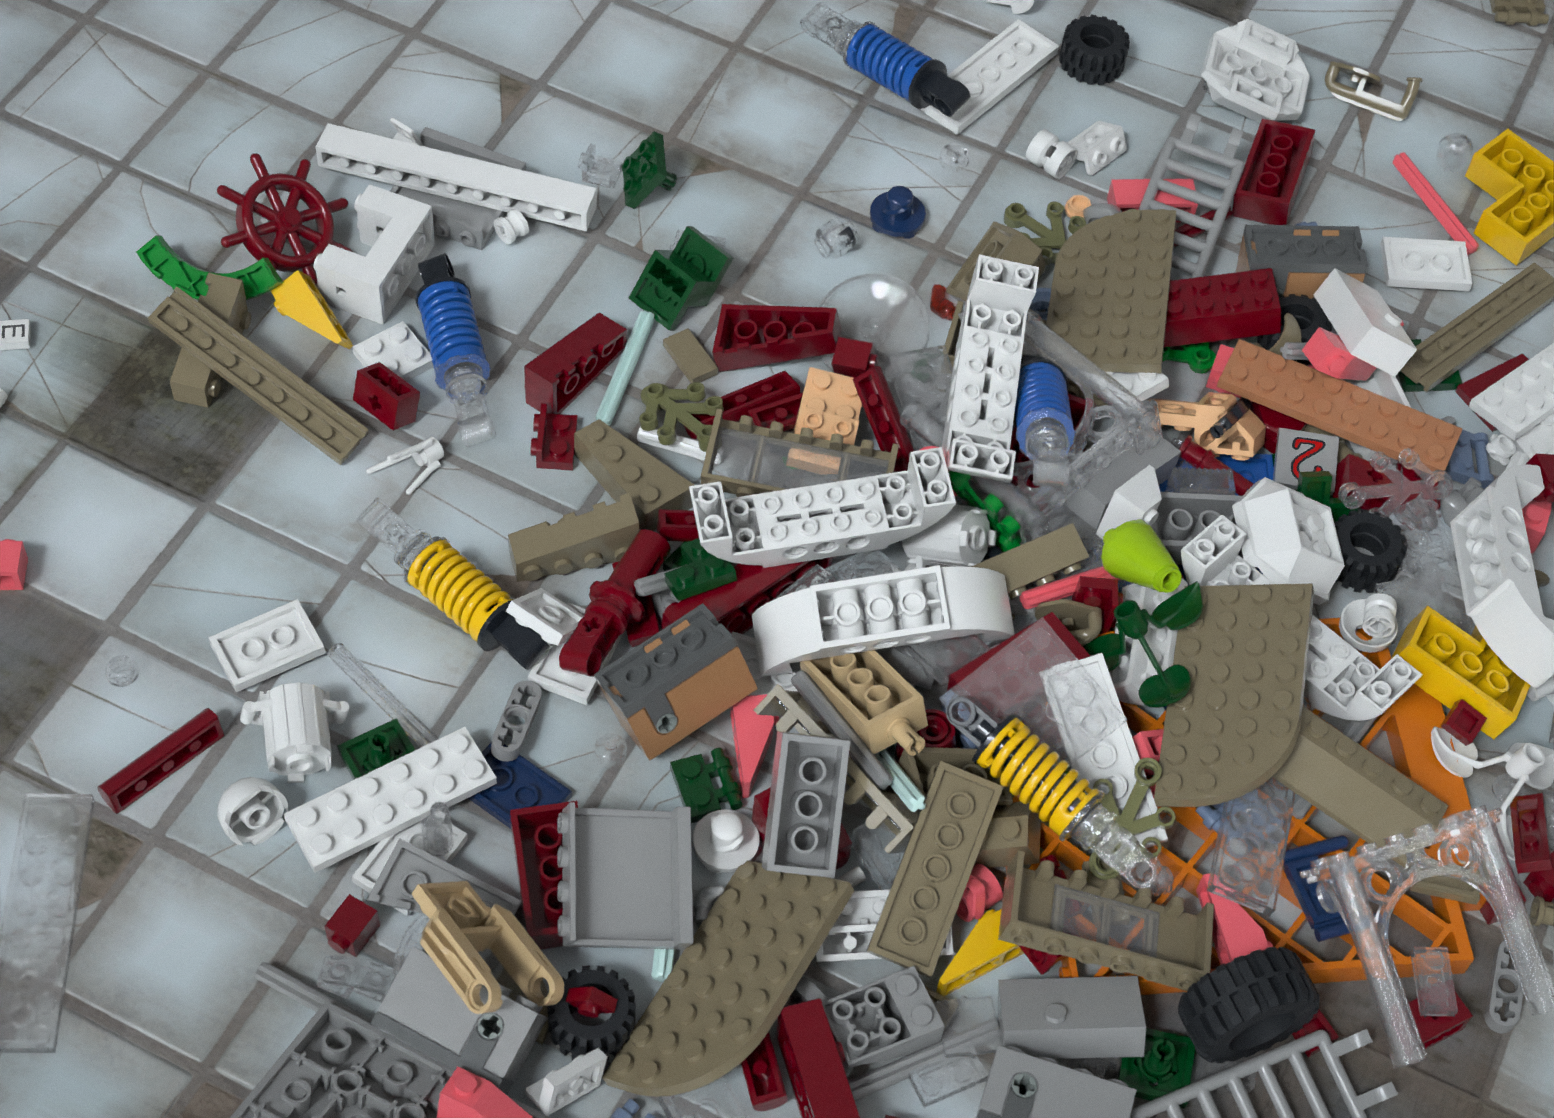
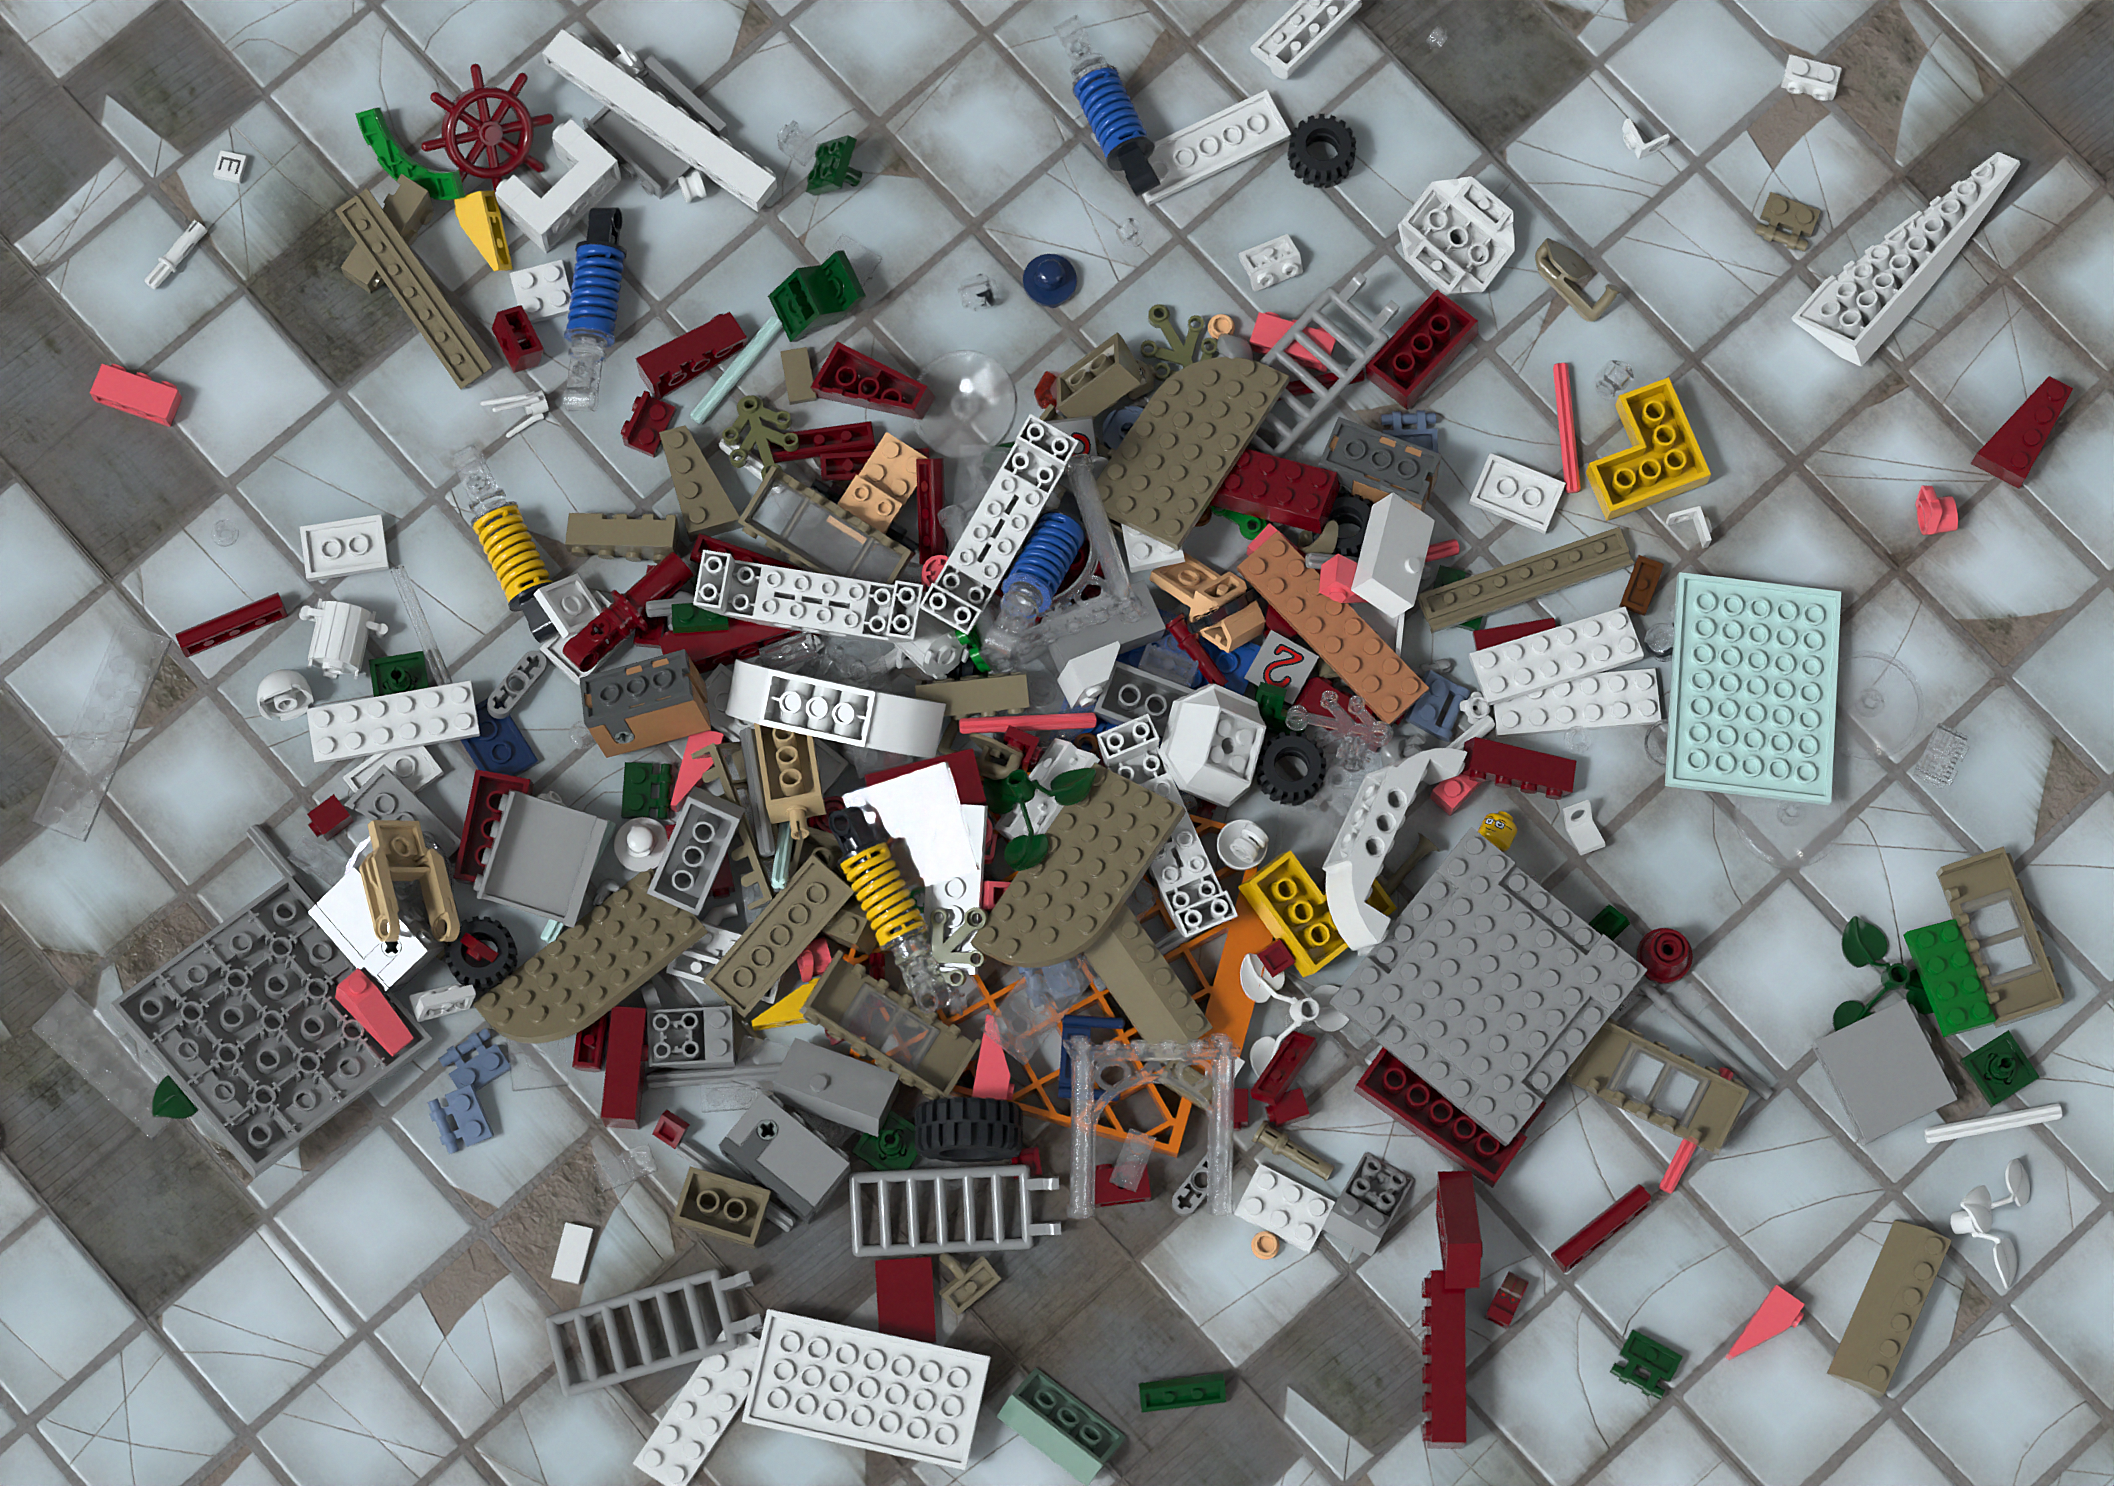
camera: 25 degrees right, 20 degrees up
(437, 830) = (418, 759): clear hinge -> none
(853, 357) = (932, 433): dark red brick -> none
(1053, 155) = (1220, 259): white wheel -> none
(1139, 556) = (1065, 726): lime cone -> none

